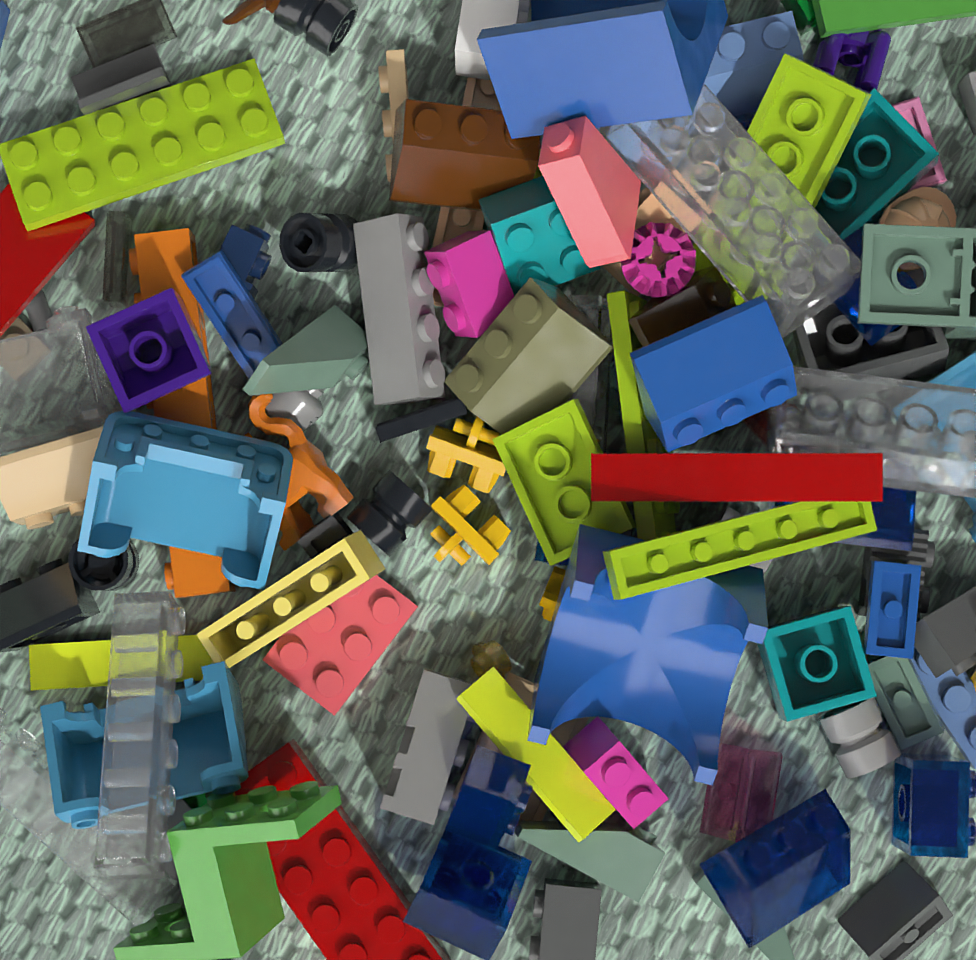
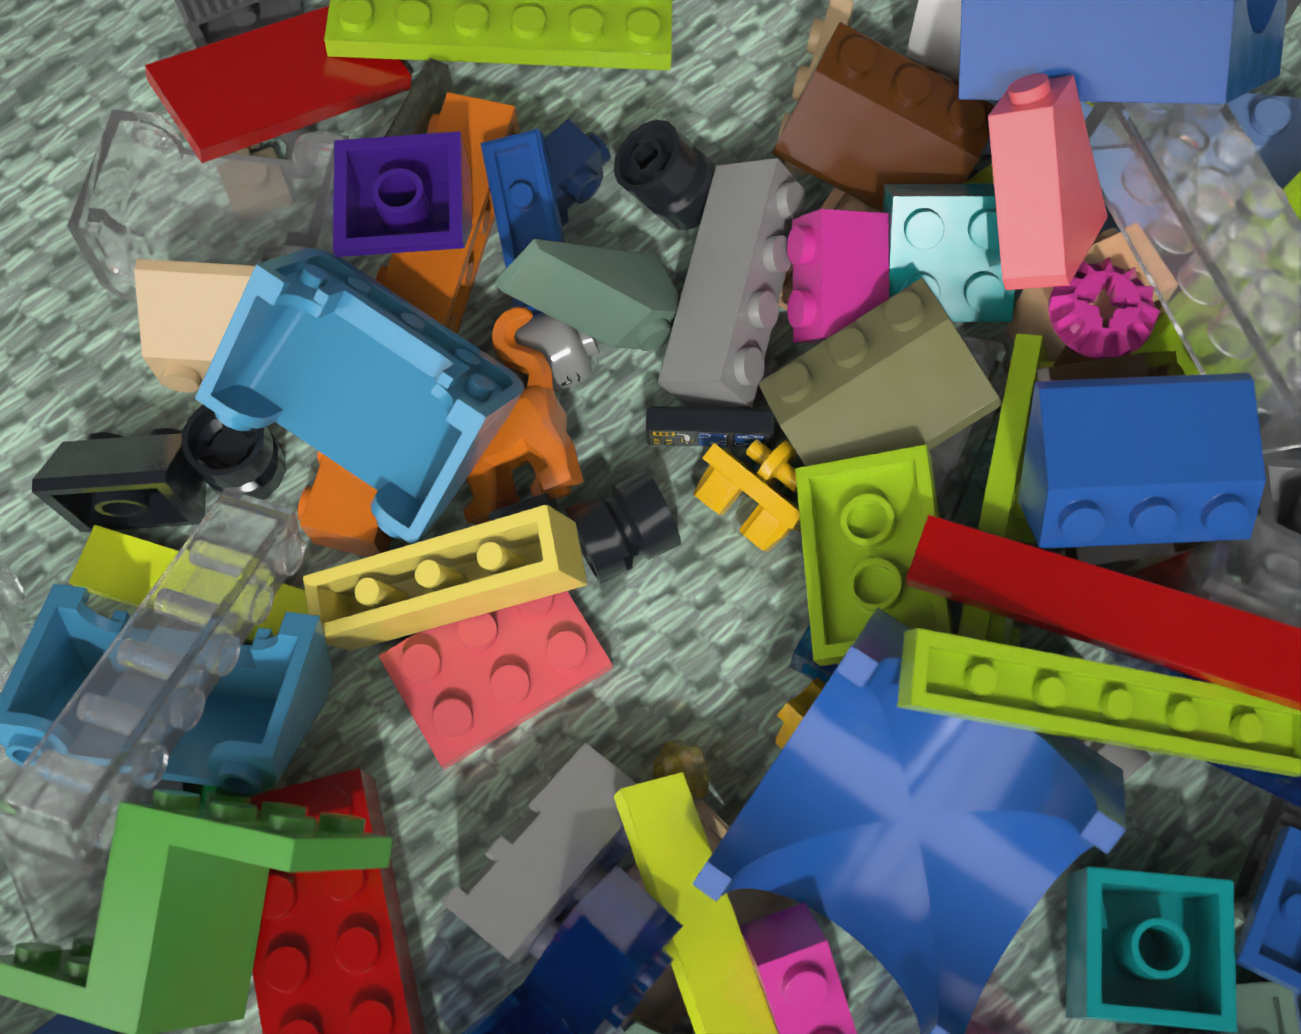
camera: 25 degrees right, 15 degrees down
(454, 511) = (707, 559): yellow hips -> none

